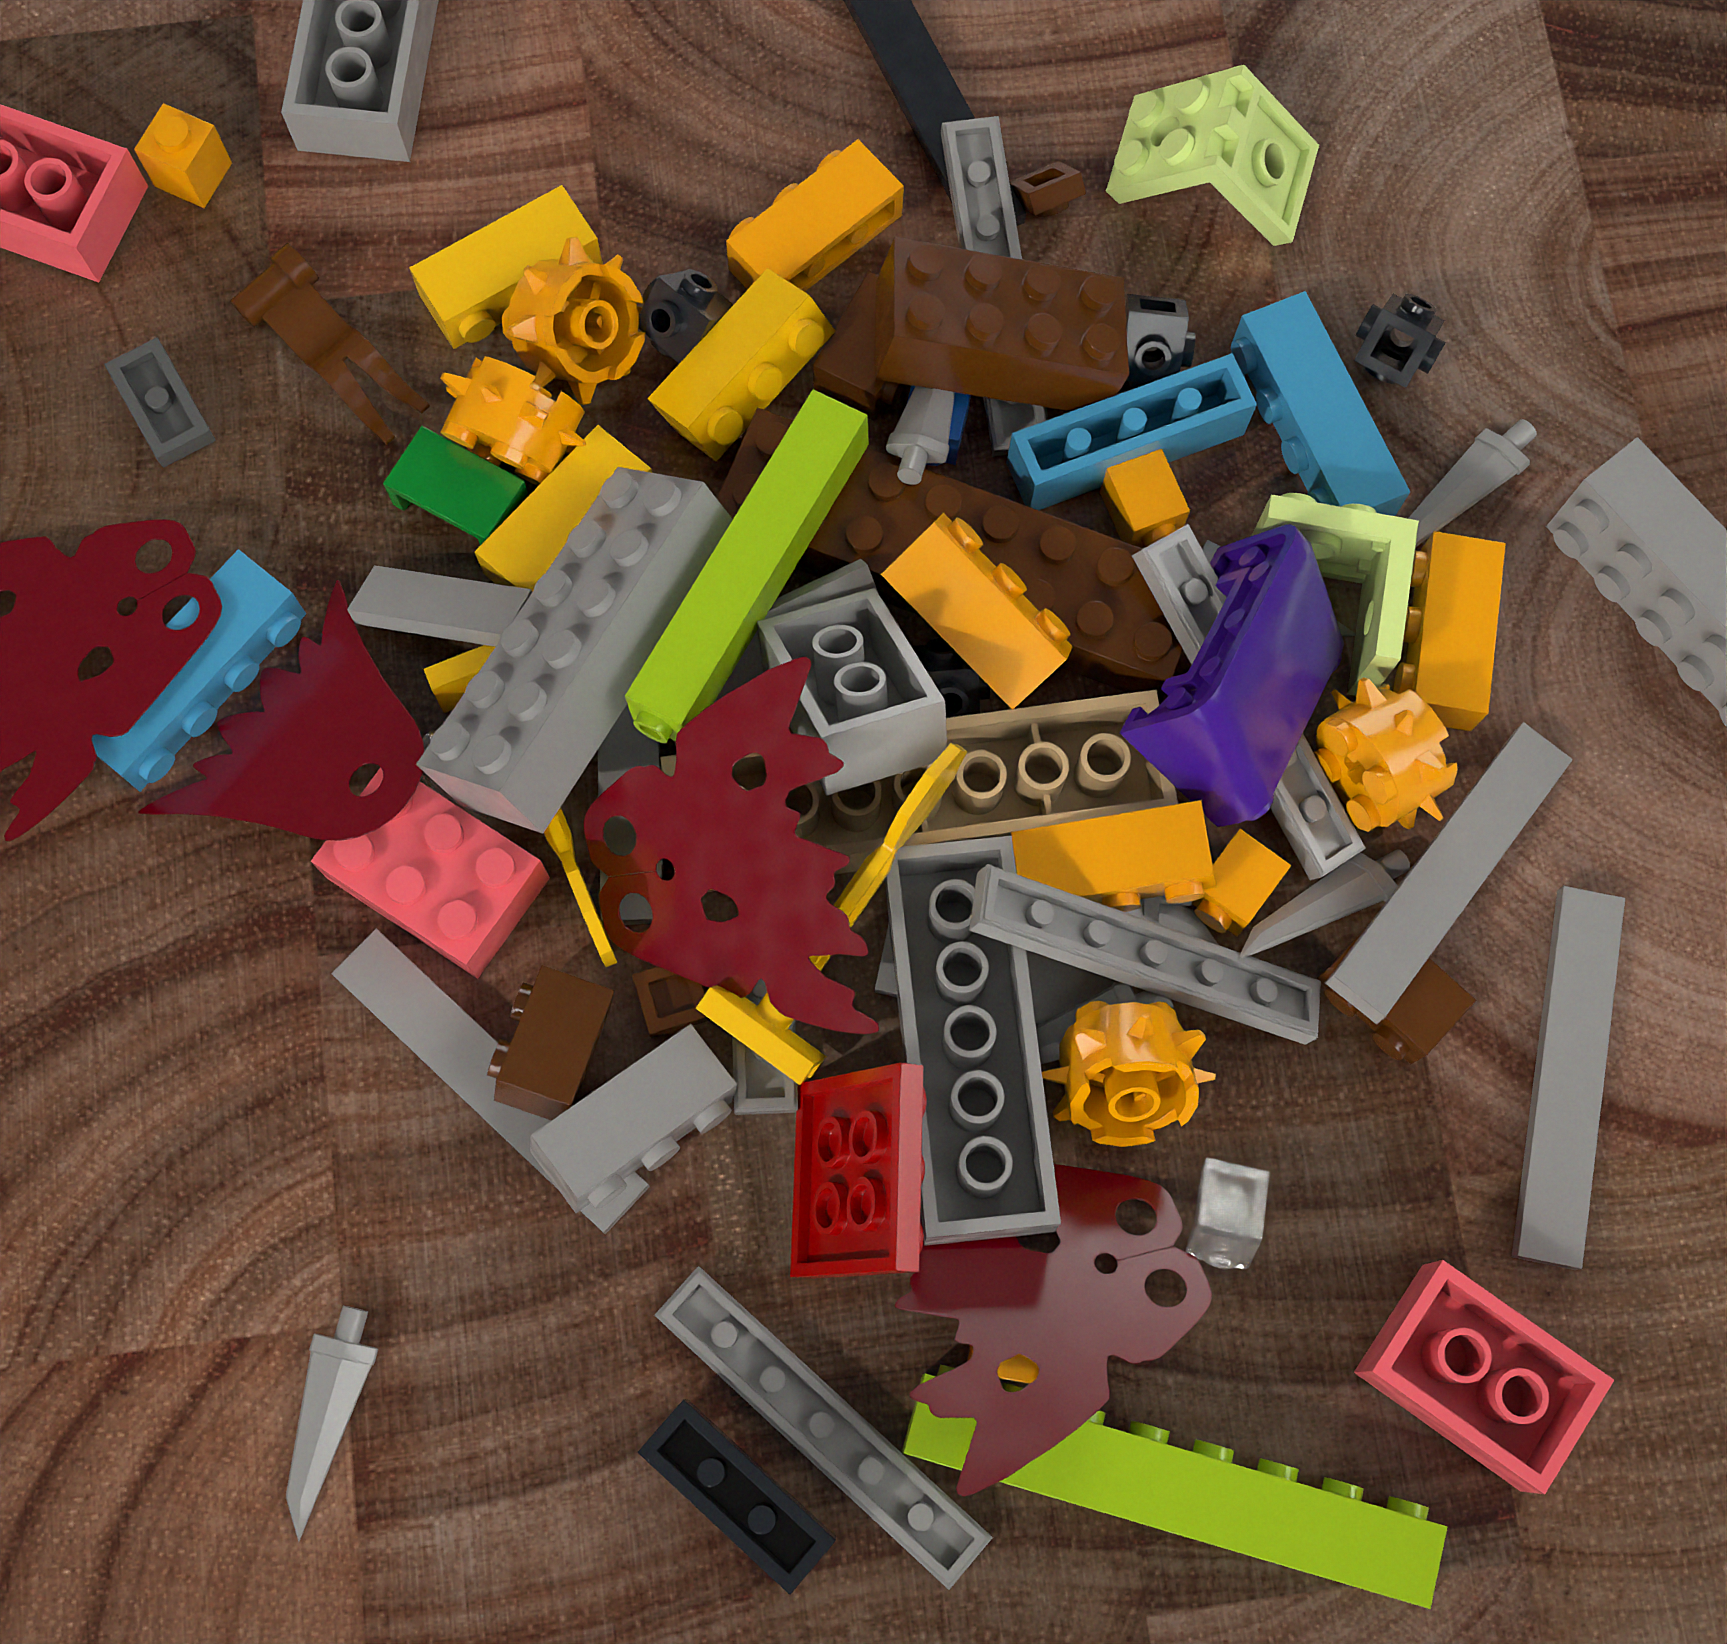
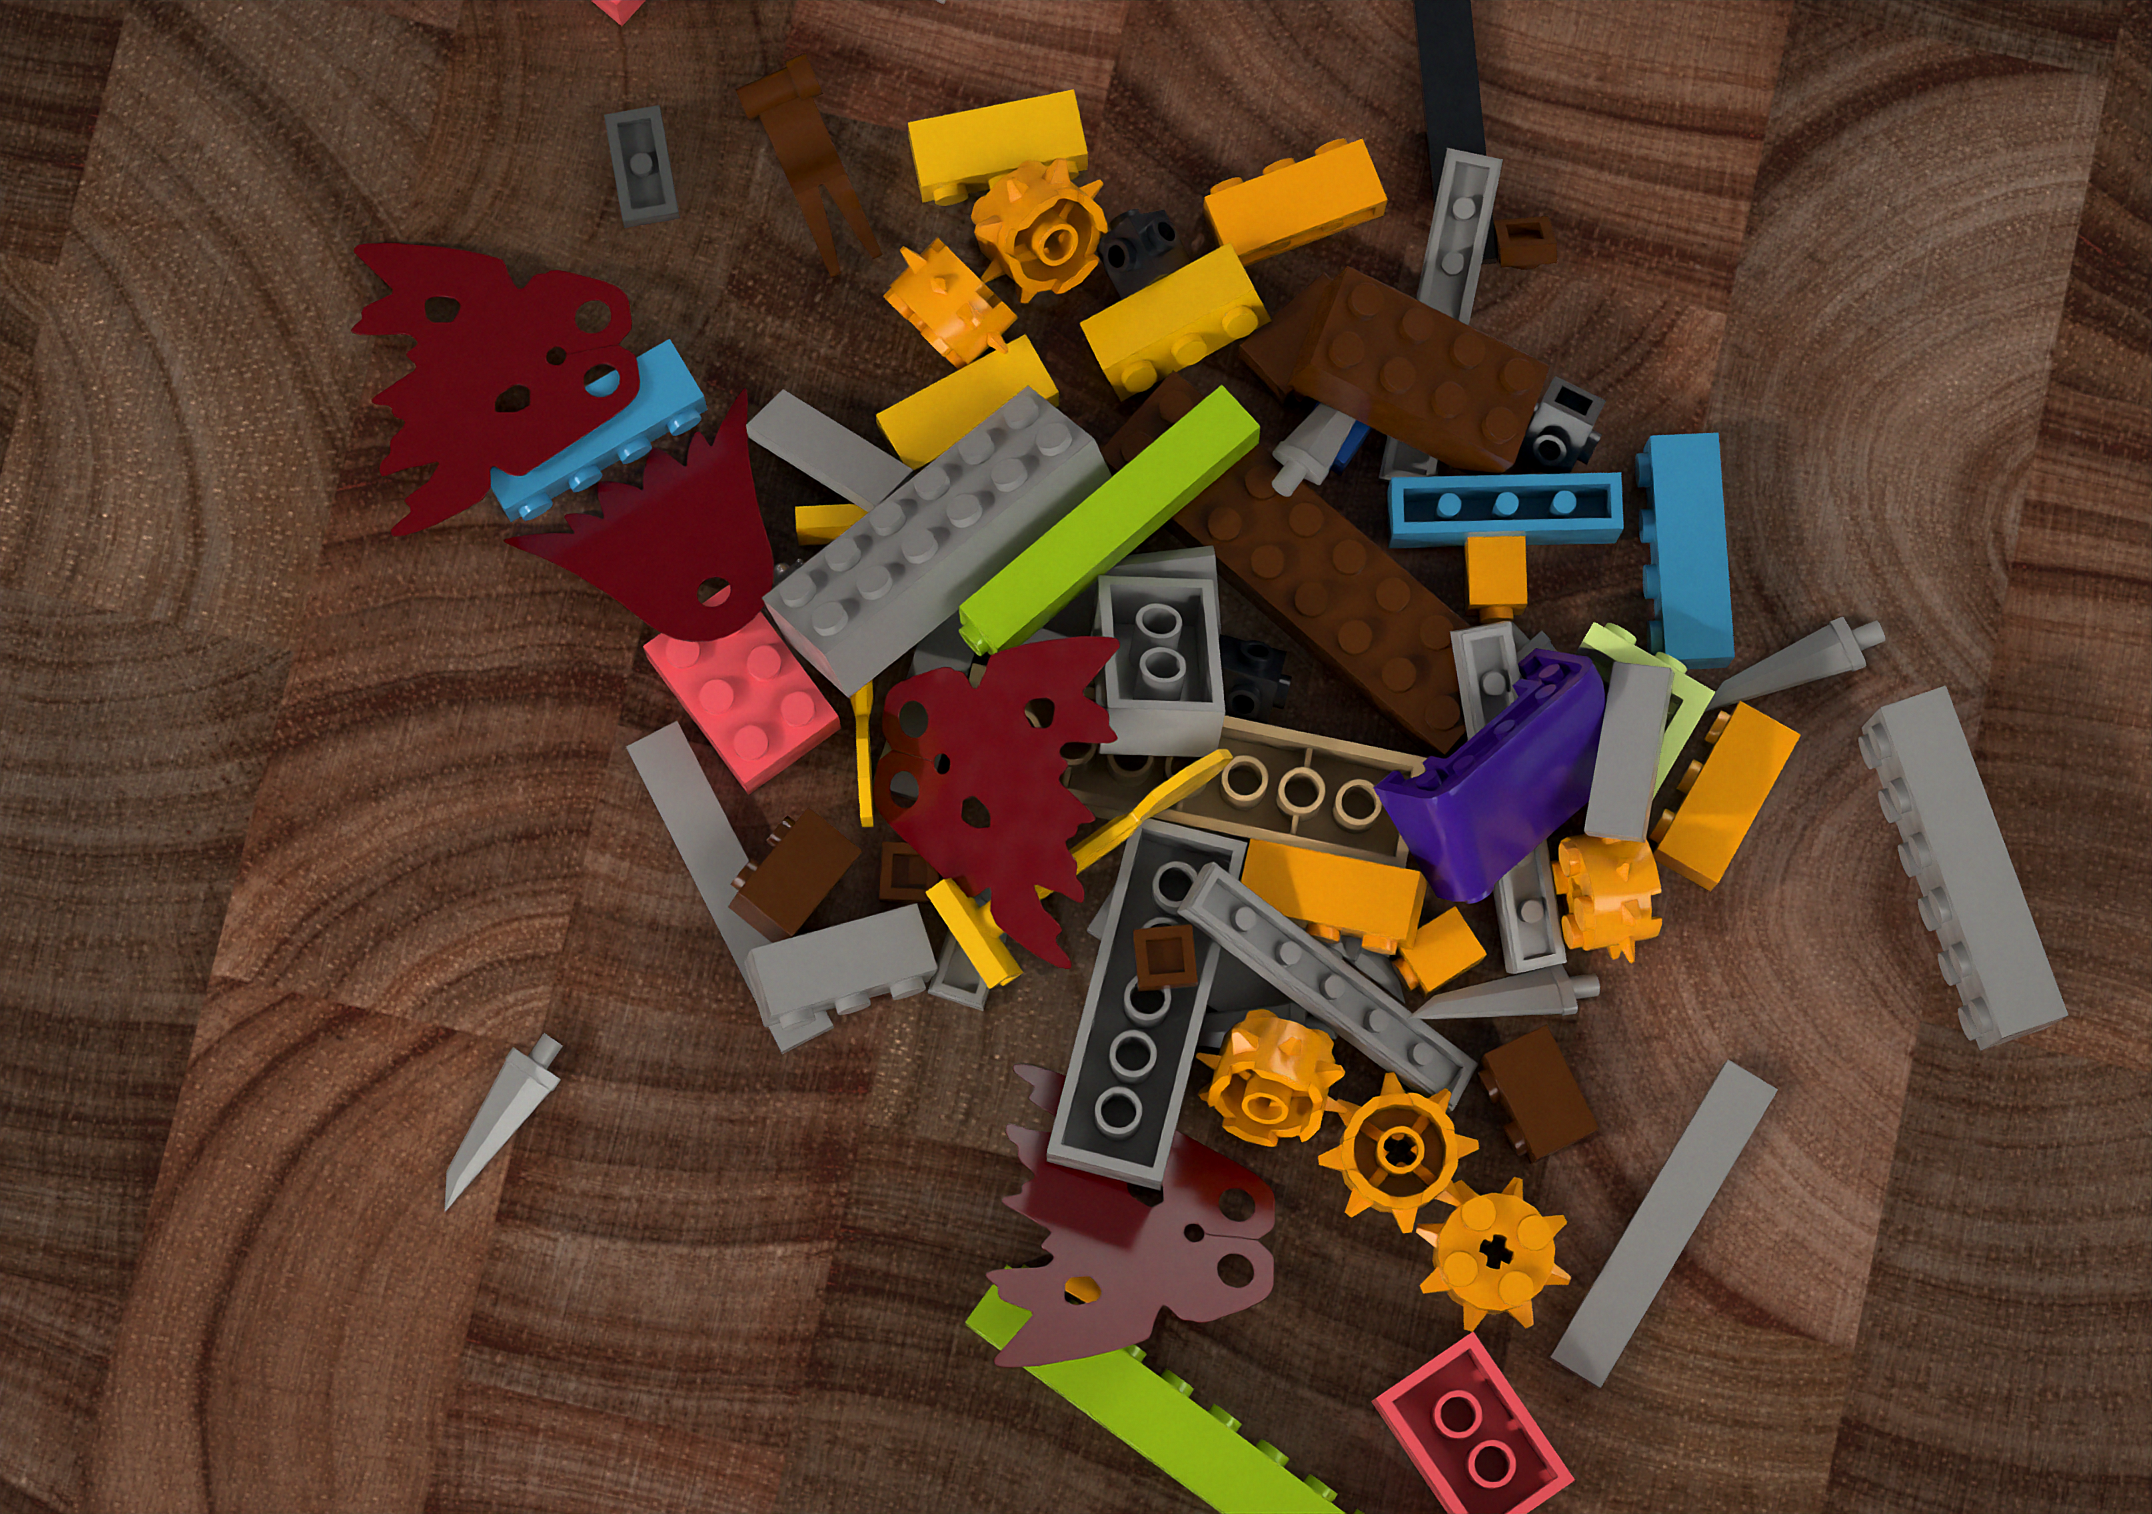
camera: 20 degrees right, 5 degrees up
(454, 485) = (880, 345): green panel -> none
(737, 1495) = (817, 1304): black brick -> none
(824, 1427) = (907, 1278): light grey tile -> none
(858, 1173) = (1010, 1080): red plate -> none
(975, 982) = (1165, 957): none -> reddish brown plate
(980, 609) = (1296, 632): light orange brick -> none
(1220, 134) = (1696, 265): yellowish green bracket -> none
(1228, 1214) = (1314, 1232): clear bracket -> none
(1314, 1084) = (1391, 1119): none -> light orange brick
(1363, 605) = (1629, 752): none -> light grey tile
(1395, 359) = (1790, 508): black brick -> none
(1403, 1201) = (1463, 1269): none -> light orange brick
(1448, 873) = (1626, 1008): light grey tile -> none

